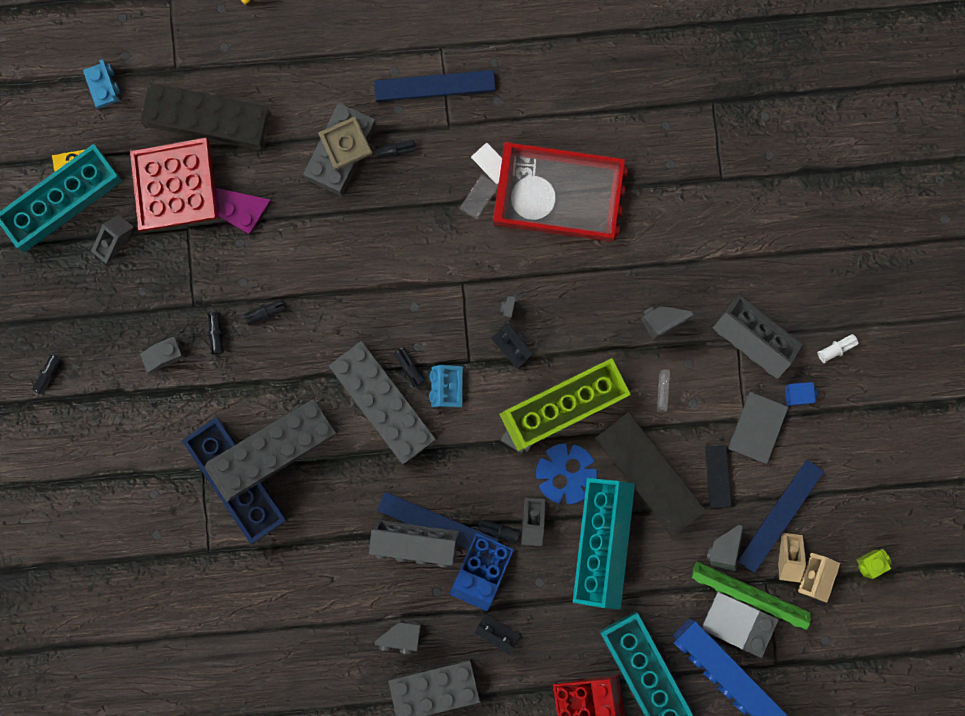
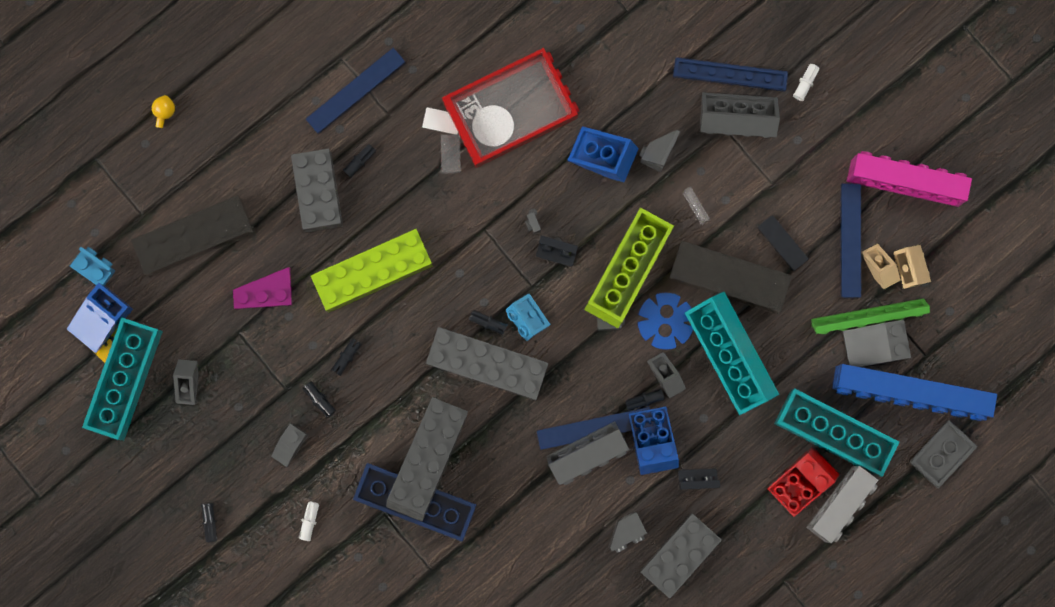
camera: 30 degrees left, 0 degrees up
(76, 130) = (98, 317): none -> slope
(132, 433) = (308, 521): none -> white axle
(173, 184) = (205, 306): plate -> none
(338, 252) = (371, 271): none -> lime brick
(345, 143) = (319, 182): dark tan tile -> none
(613, 288) = (603, 153): none -> blue slope
(726, 549) = (827, 294): dark grey slope -> none
(757, 428) = (787, 185): dark grey tile -> none
(775, 295) = (730, 74): none -> dark blue tile
(801, 394) = (802, 136): blue brick -> none
(870, 498) = (909, 179): none -> dark pink brick
(874, 563) = (946, 227): lime brick -> none

